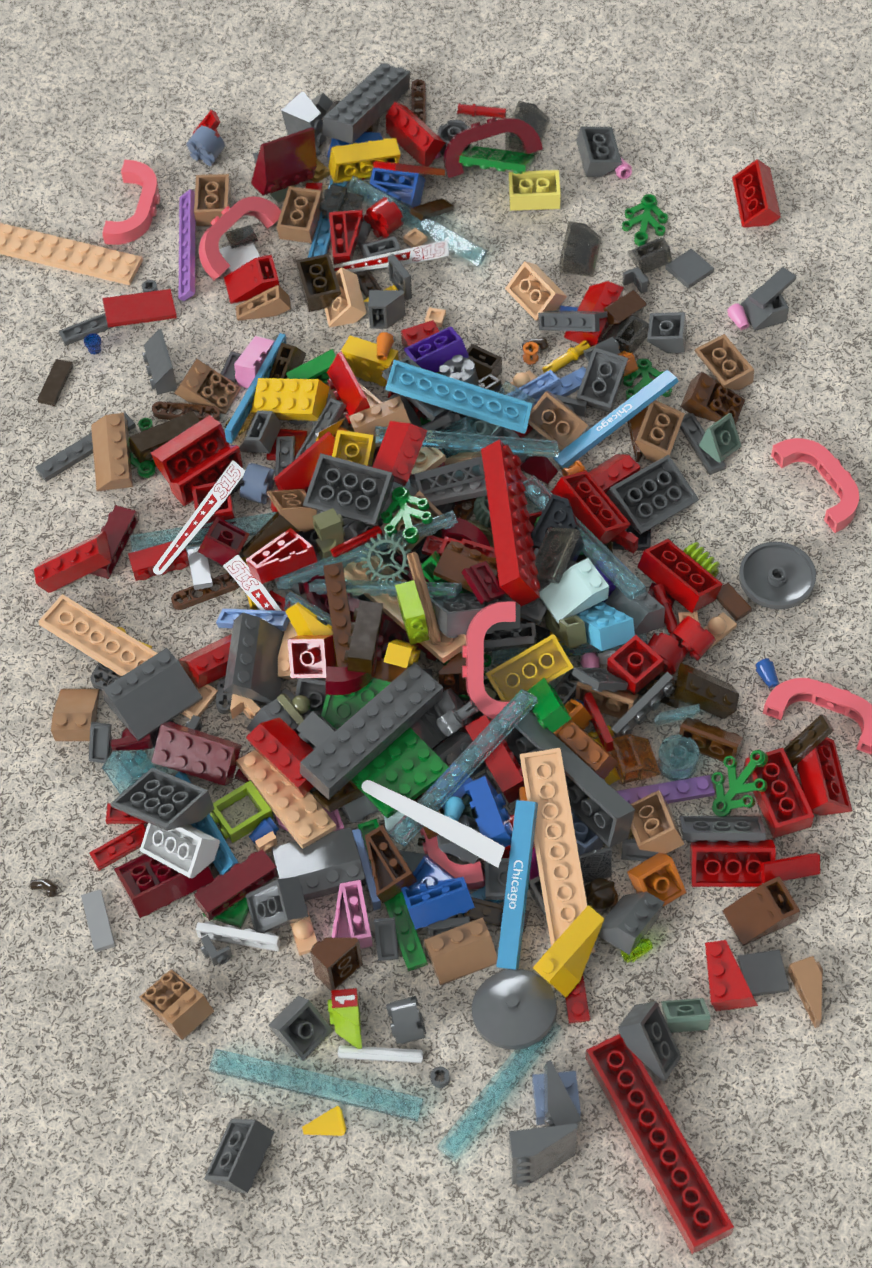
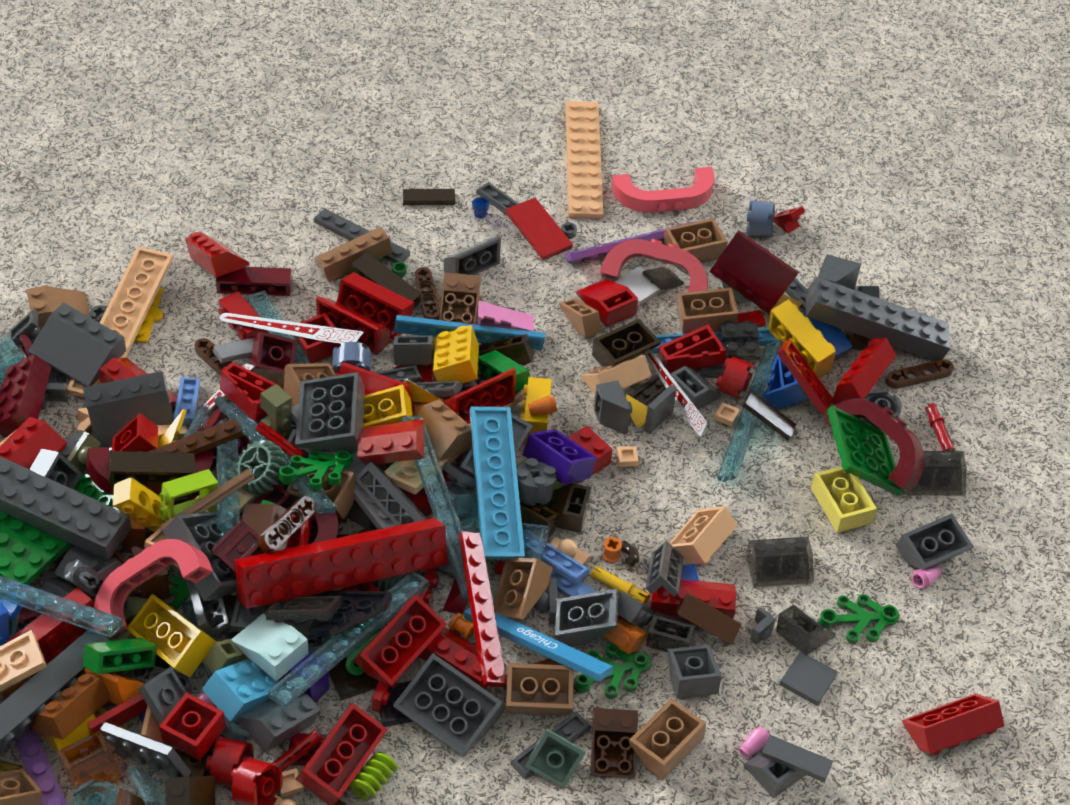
camera: 65 degrees right, 10 degrees down
(470, 543) = (289, 526): none -> reddish brown beam
(576, 444) = (482, 610): none -> plate

